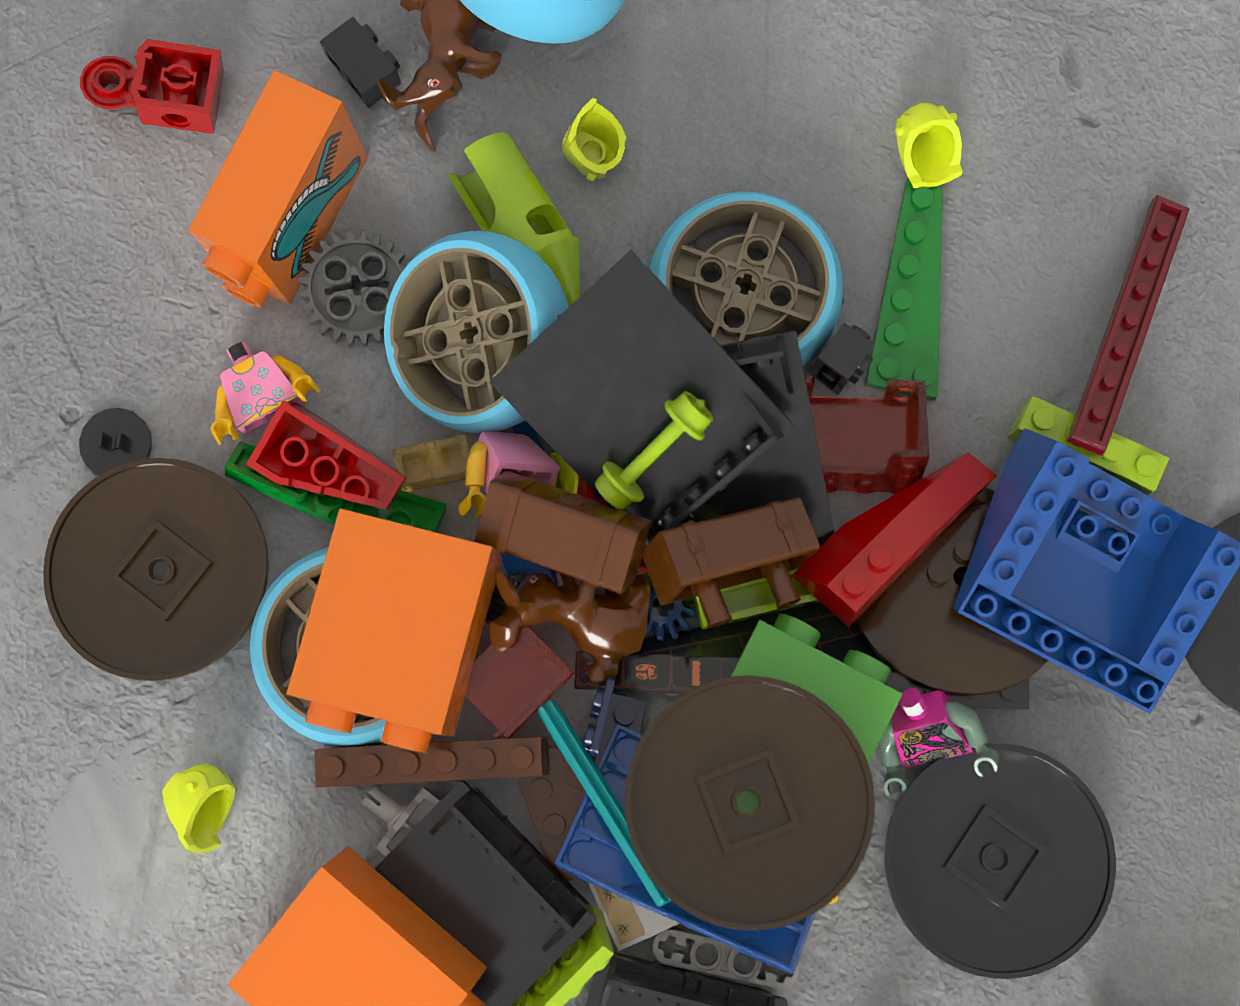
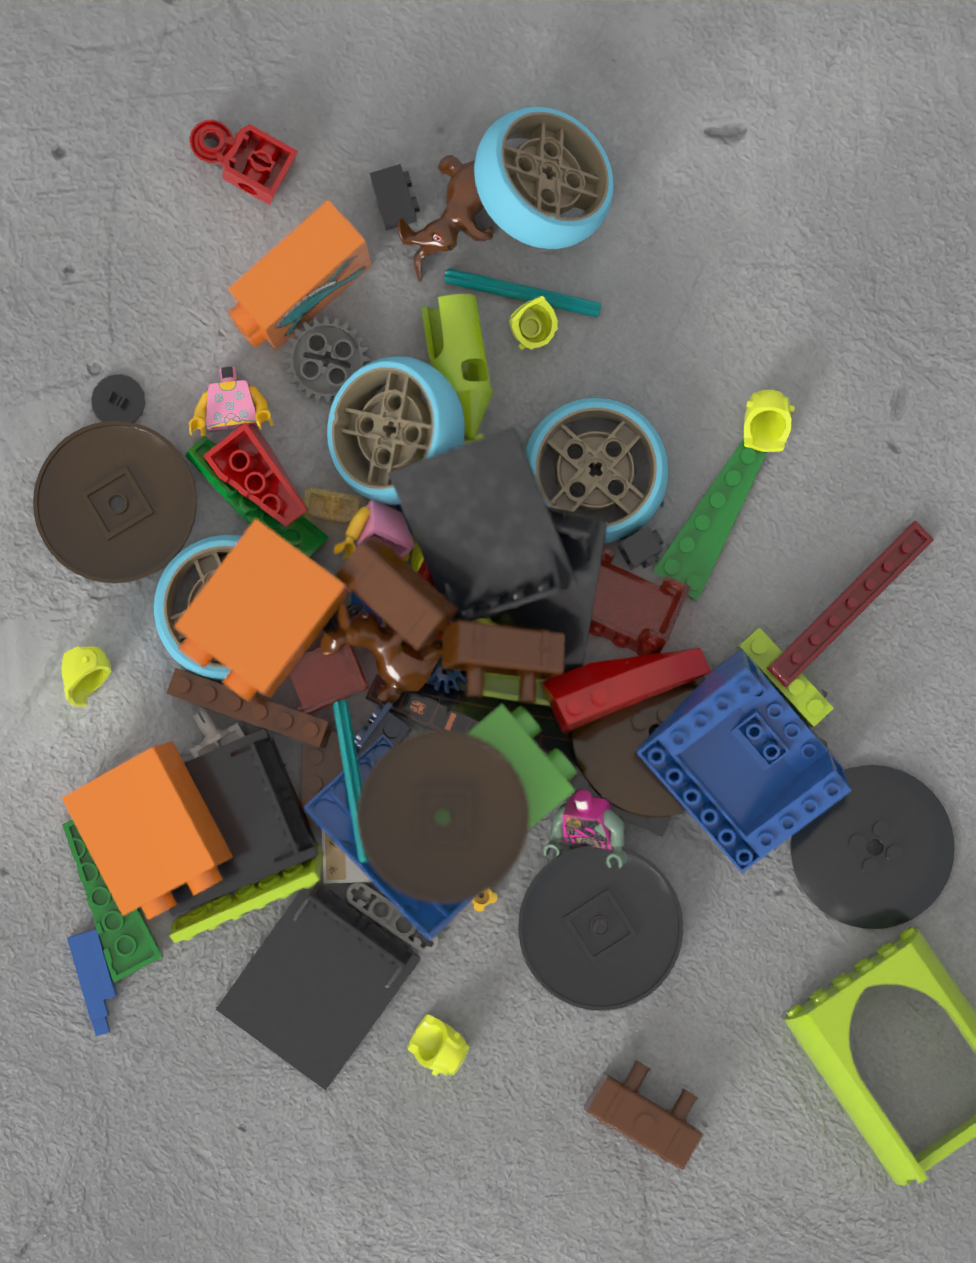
camera: 25 degrees right, 5 degrees up
(562, 115) = (521, 292): none -> teal axle
(619, 485) = (447, 577): lime piece -> none

